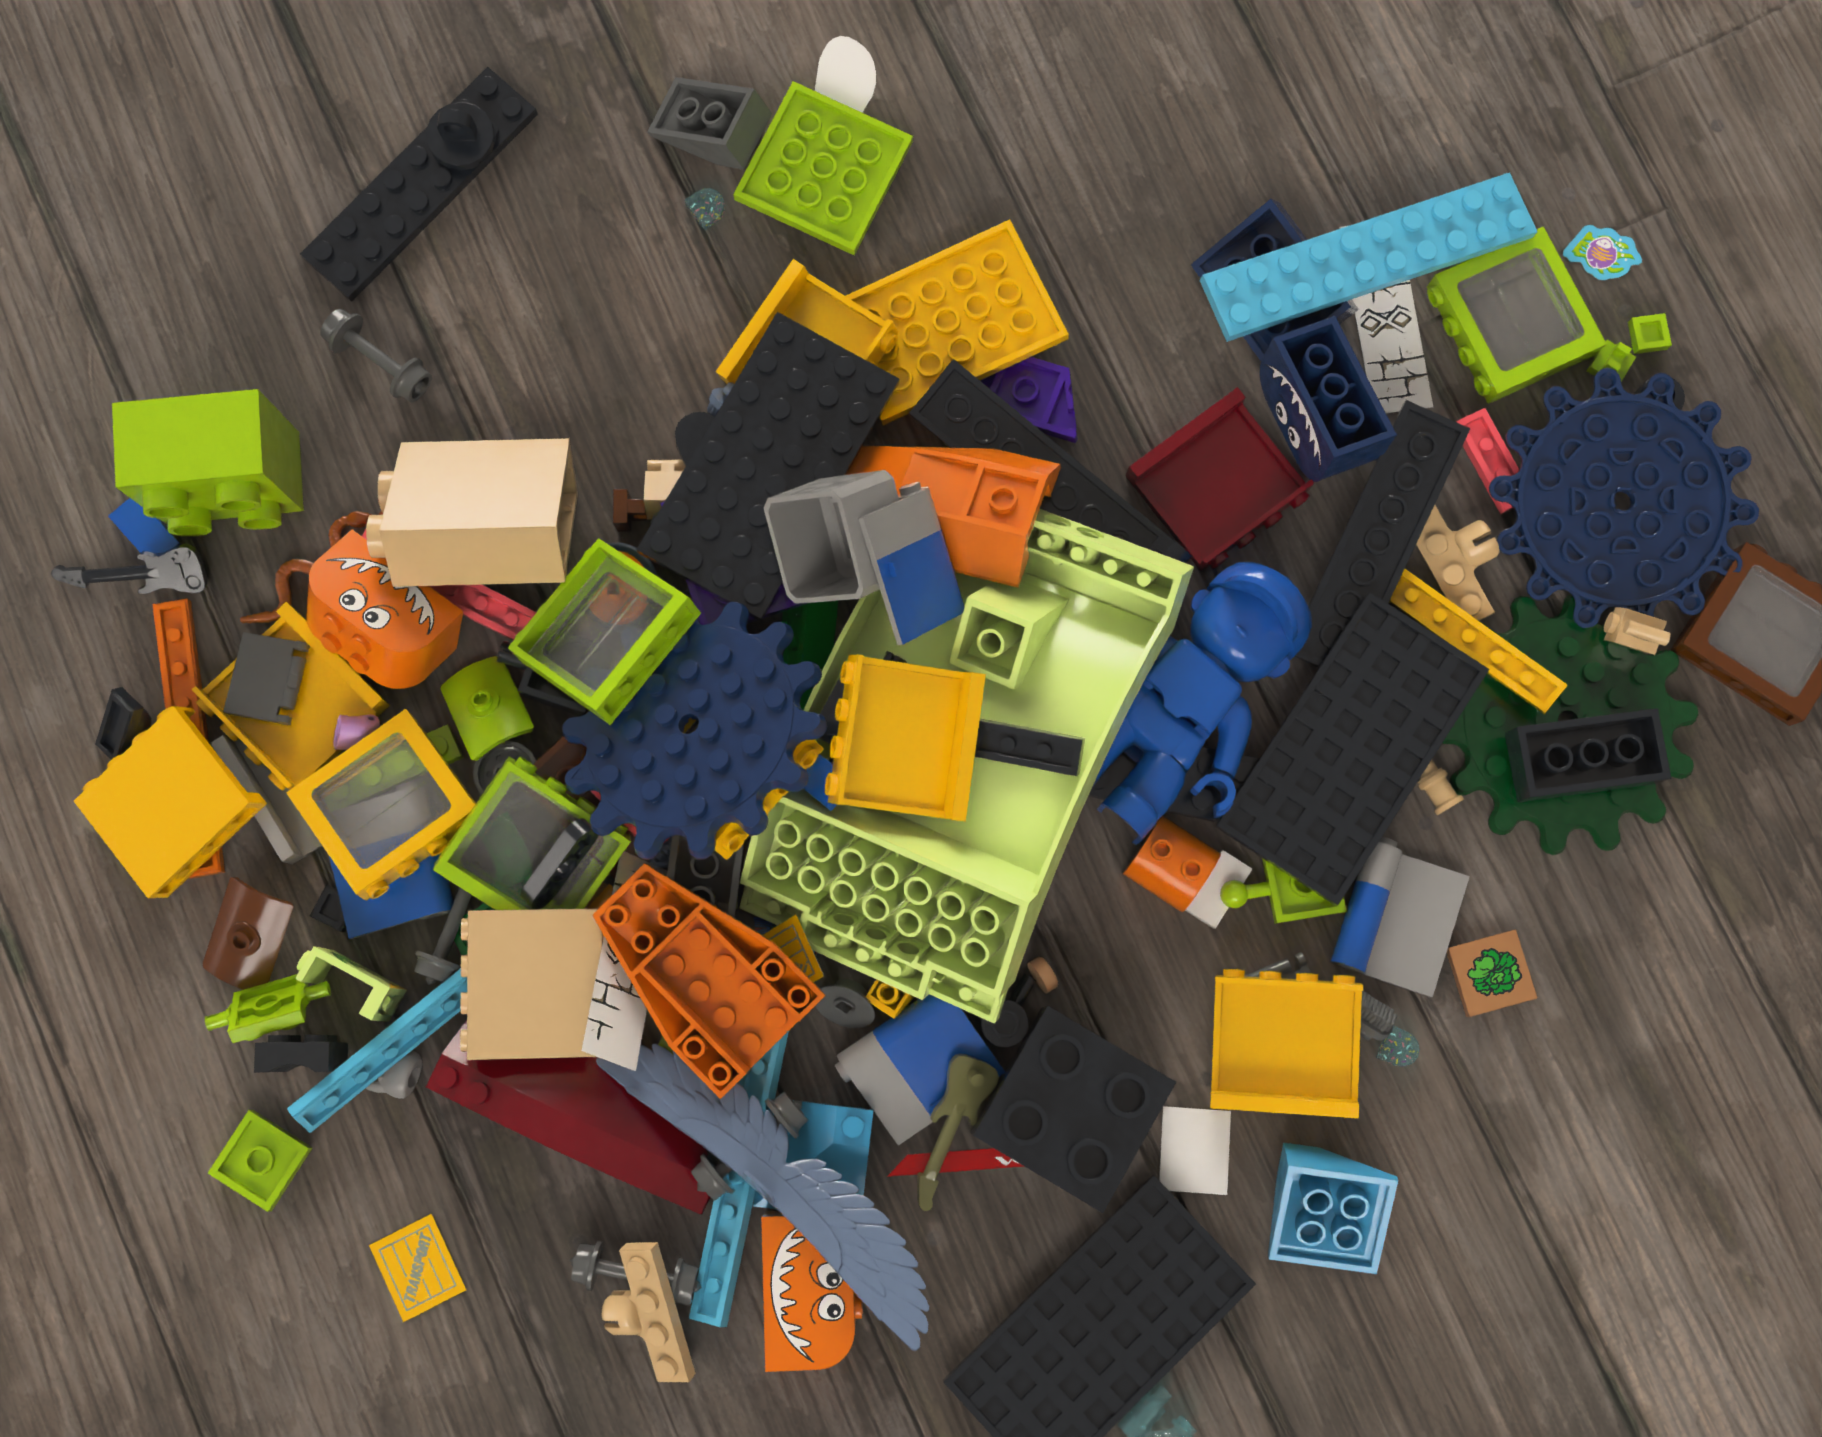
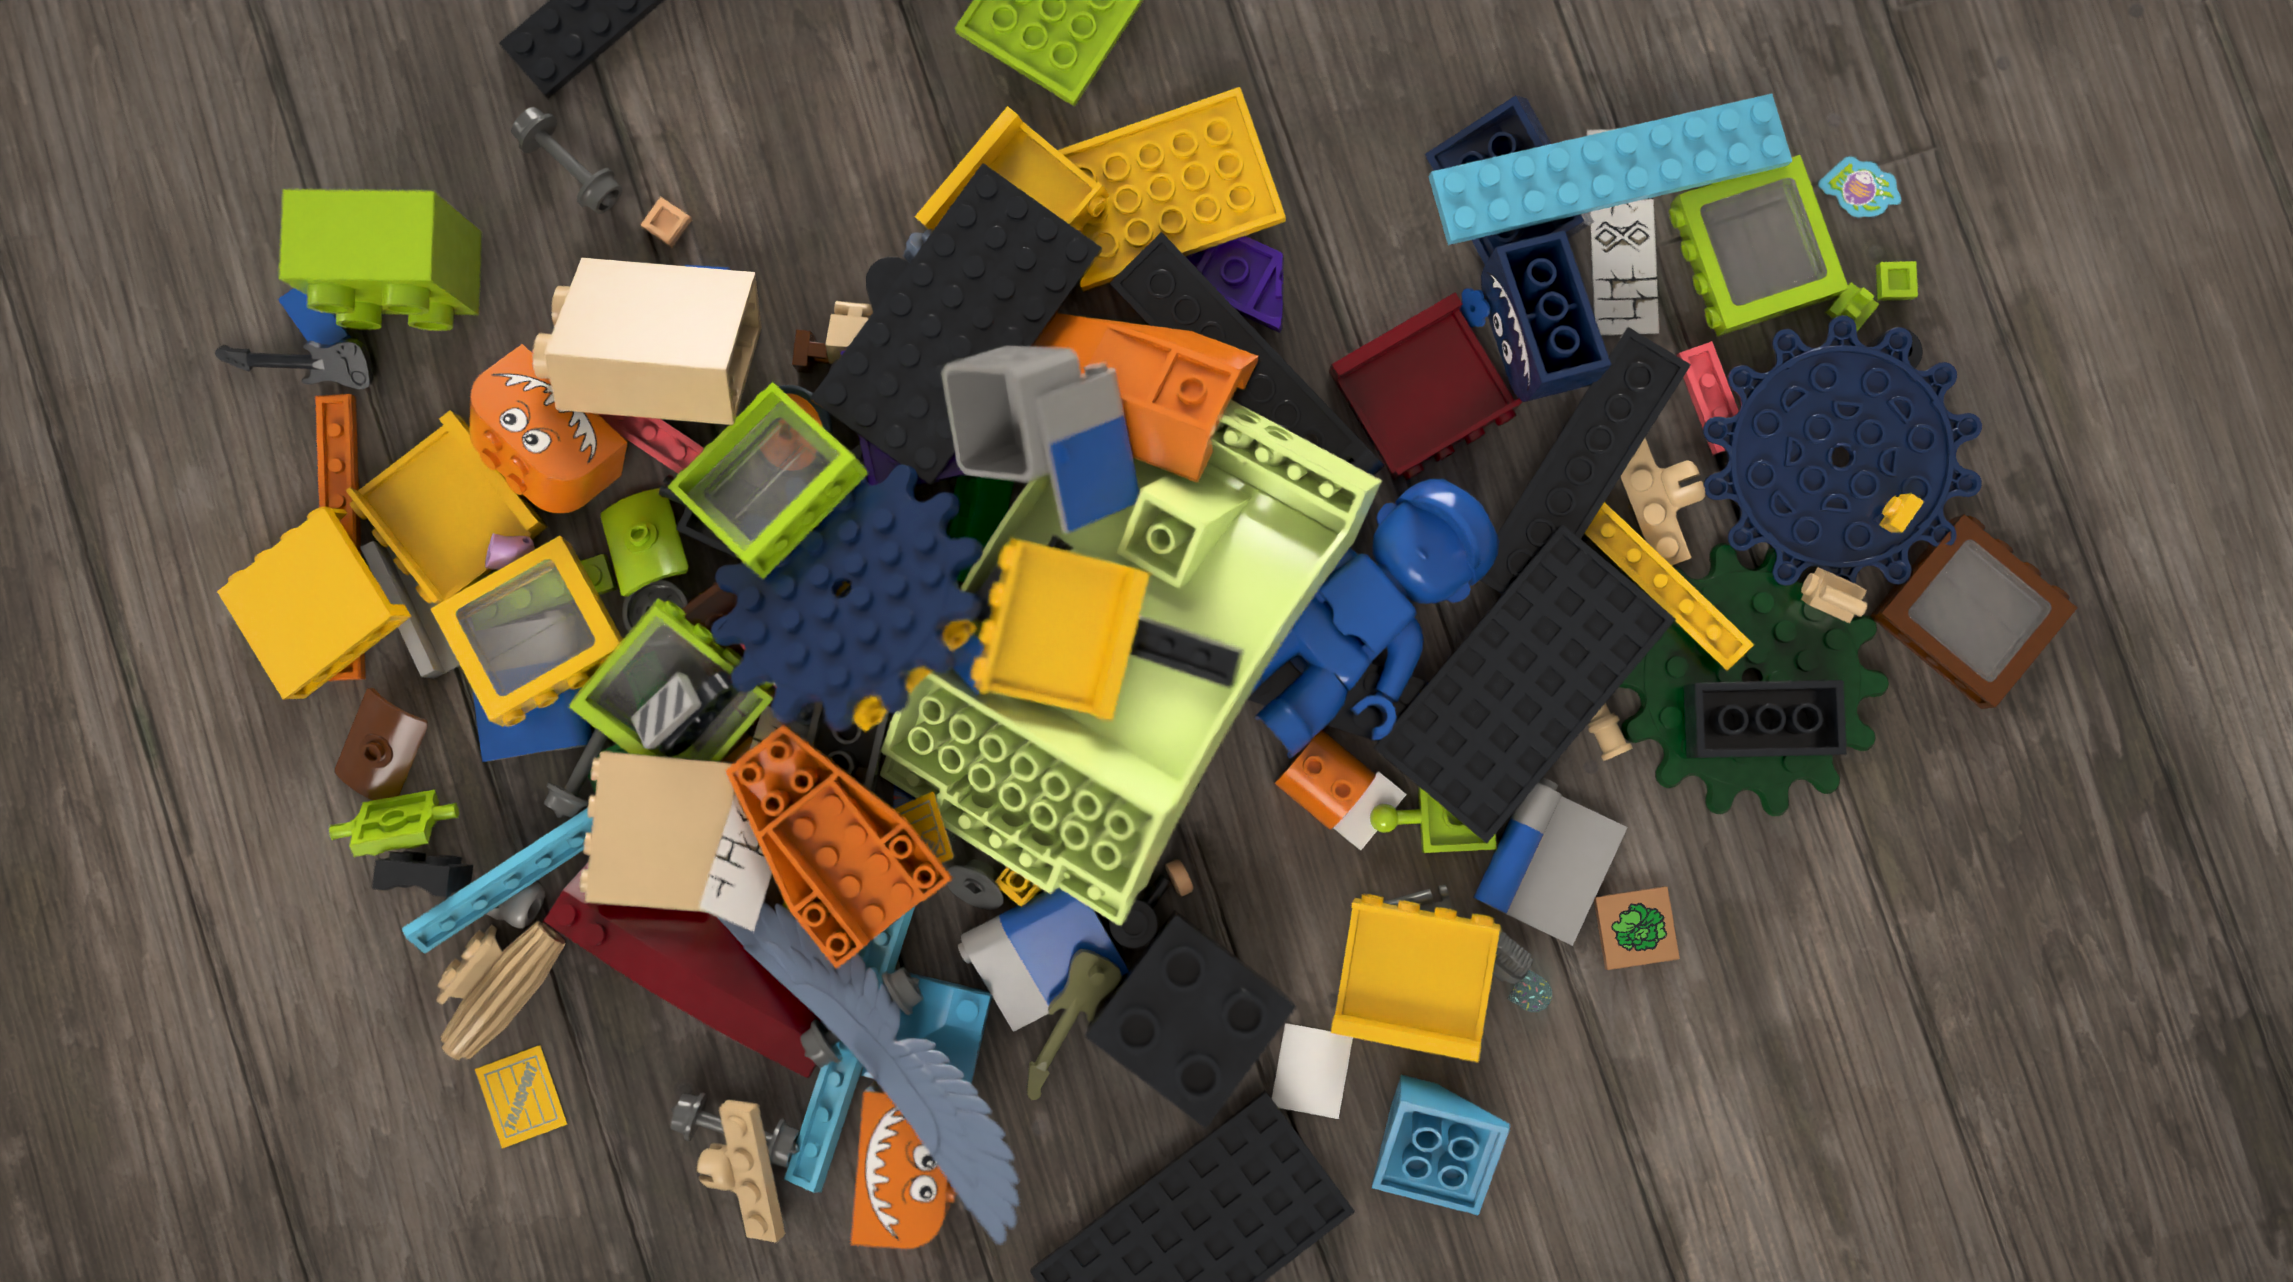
camera: 10 degrees right, 5 degrees up
(121, 723) = (273, 516): black tile -> none
(260, 1160) = (373, 973): lime plate -> none
(265, 678) = (422, 486): dark grey piece -> none
(329, 909) = (465, 729): black tile -> none
(354, 519) = (450, 381): dark orange animal -> none
(381, 1001) = (512, 820): yellowish green panel -> none
(381, 1157) = (494, 985): none -> tan plate
(476, 404) = (666, 222): none -> light nougat tile
(528, 864) = (666, 711): none -> light grey tile
(706, 206) = (926, 37): clear light blue tile -> none
(956, 1161) = (1067, 1054): red sticker -> none
(1257, 400) = (1474, 307): none -> blue plant
(1687, 545) = (1900, 512): none -> yellow plate

